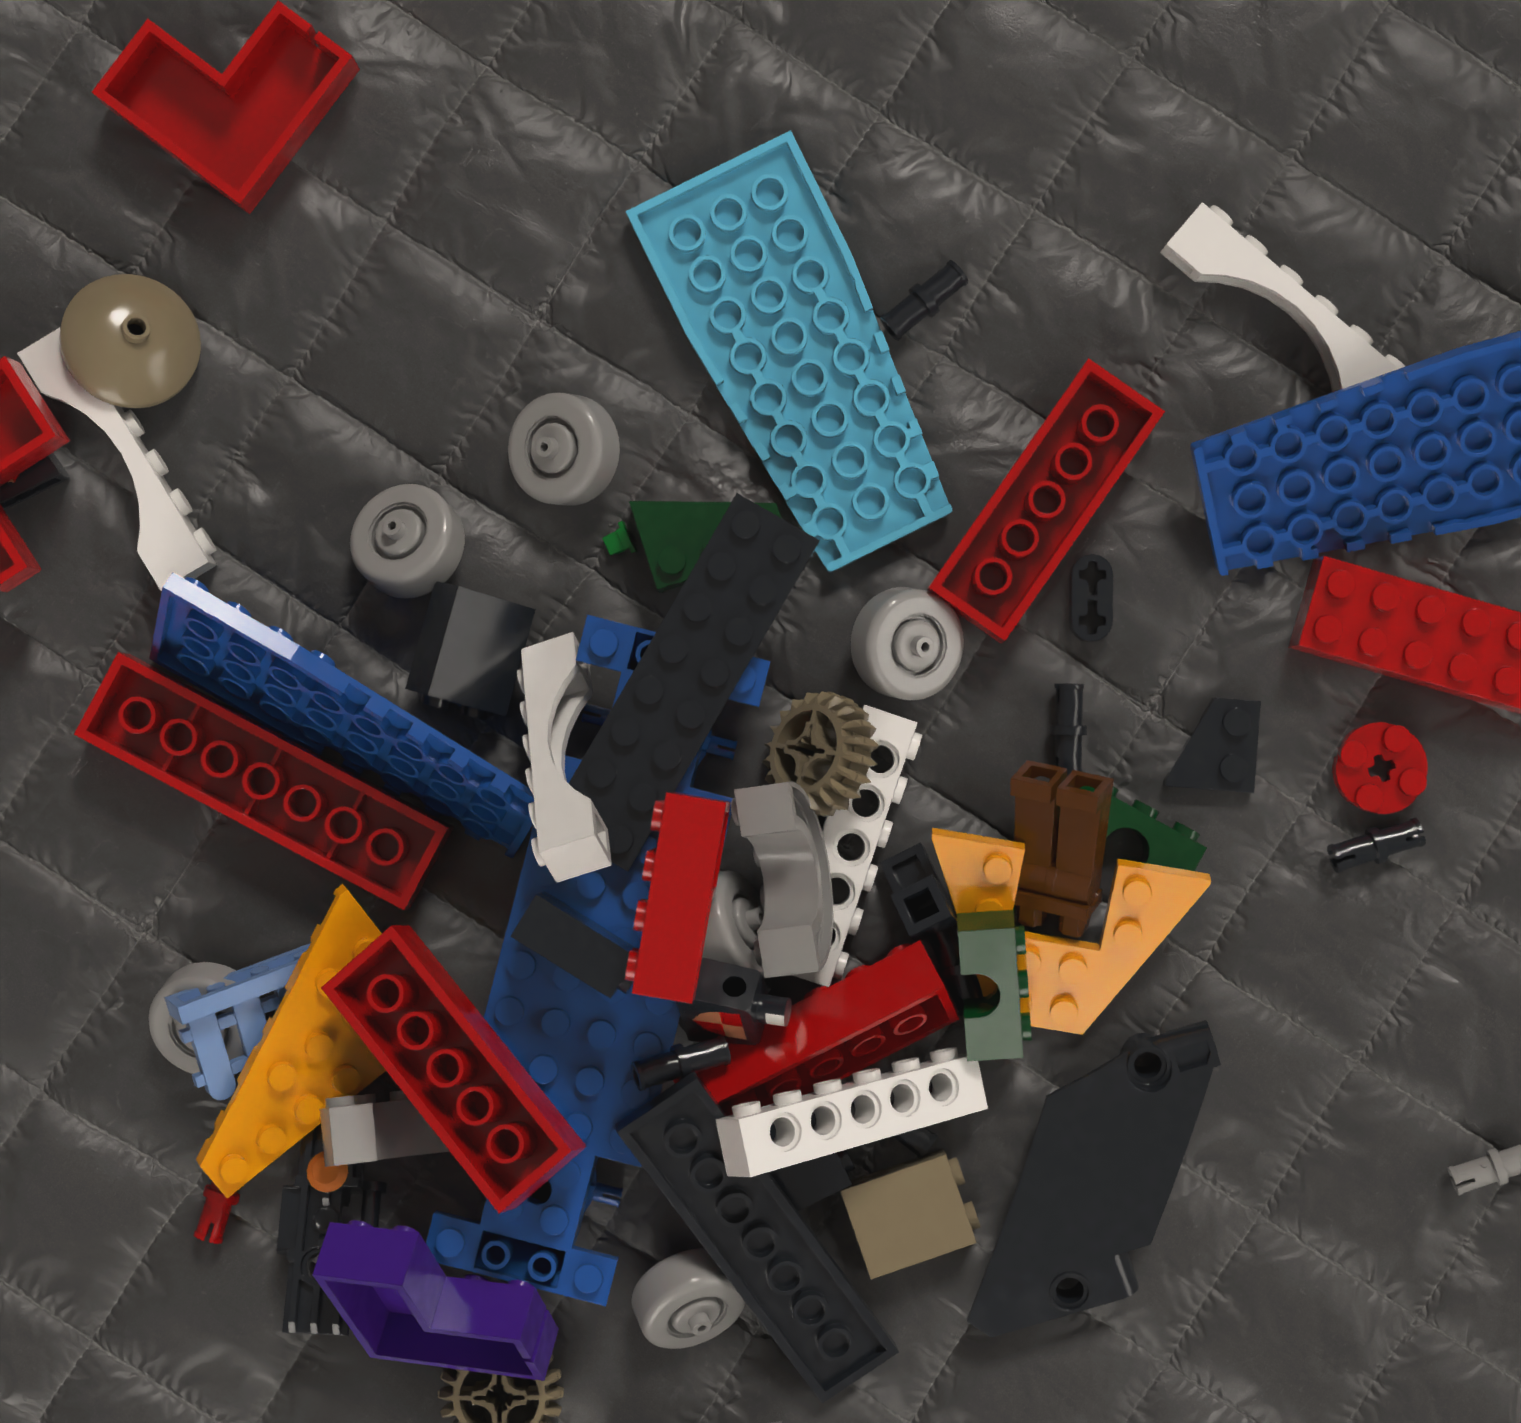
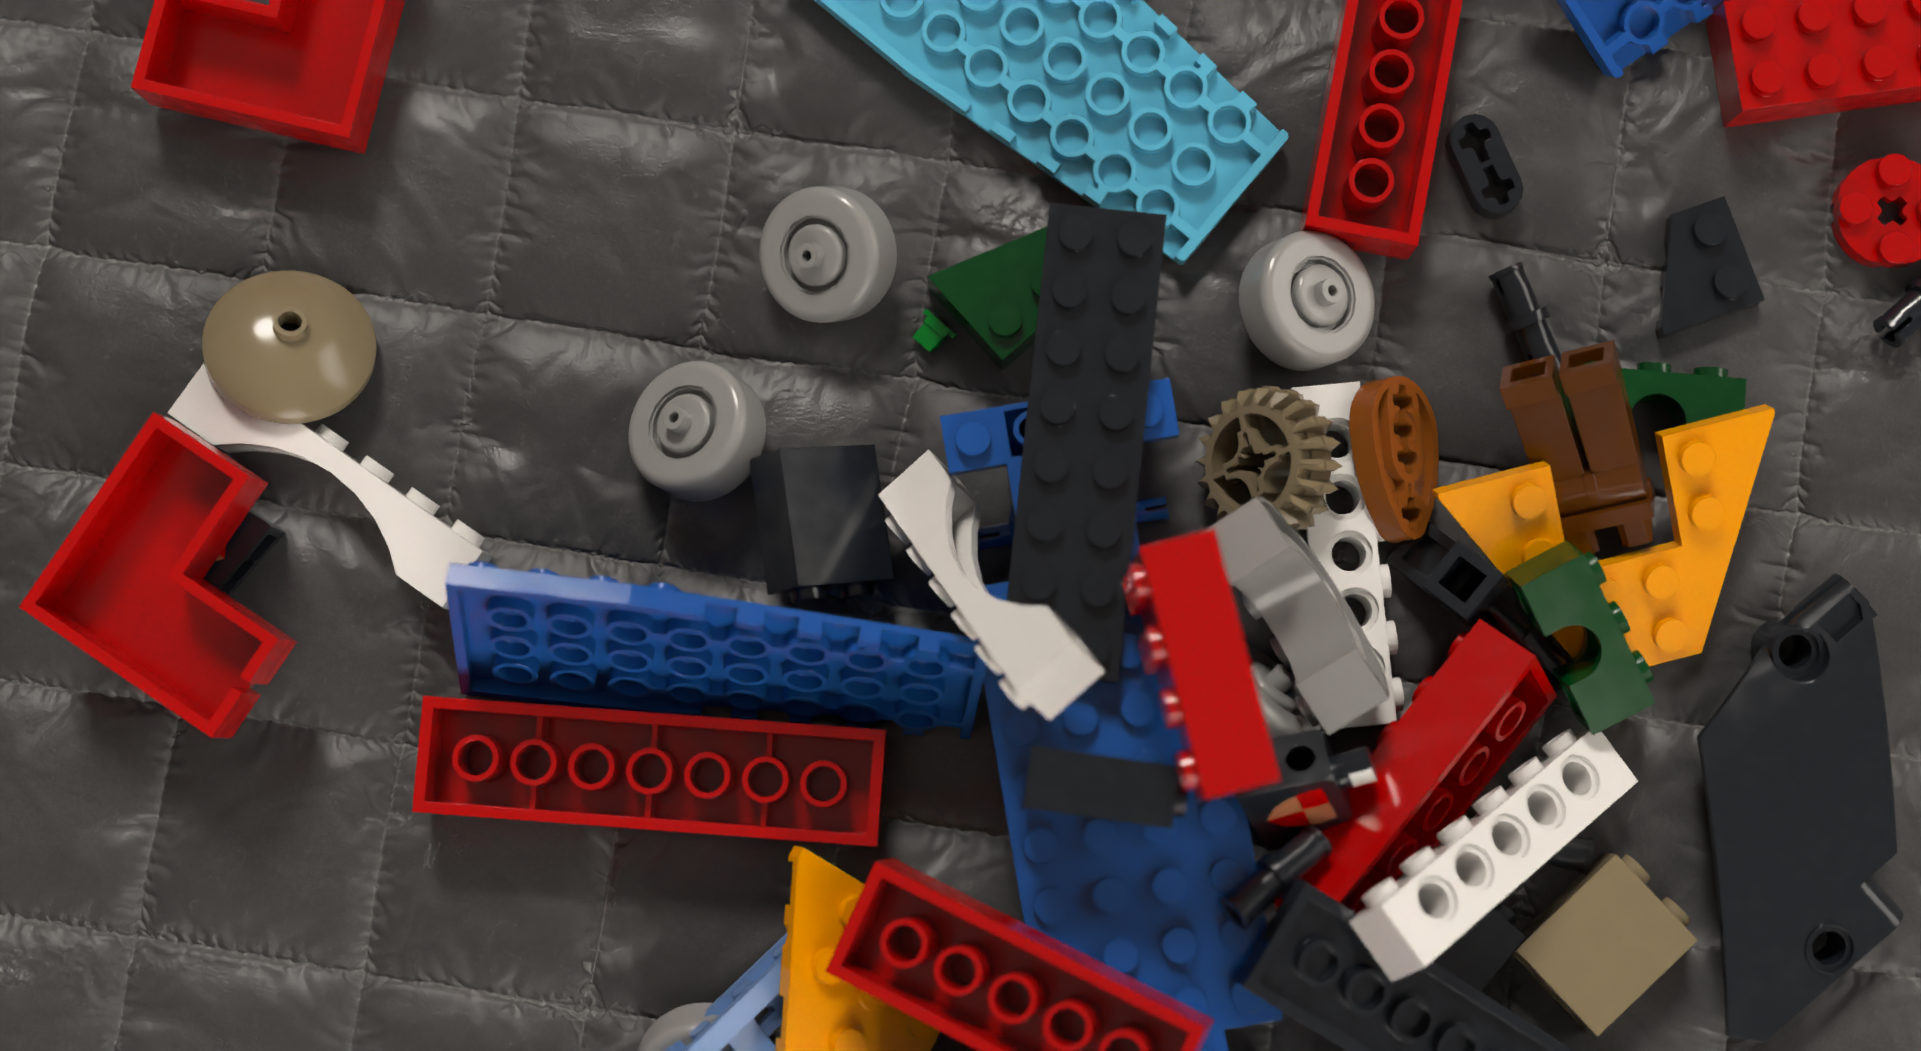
camera: 20 degrees left, 5 degrees down
(901, 805) = (1395, 455): none -> dark orange piece

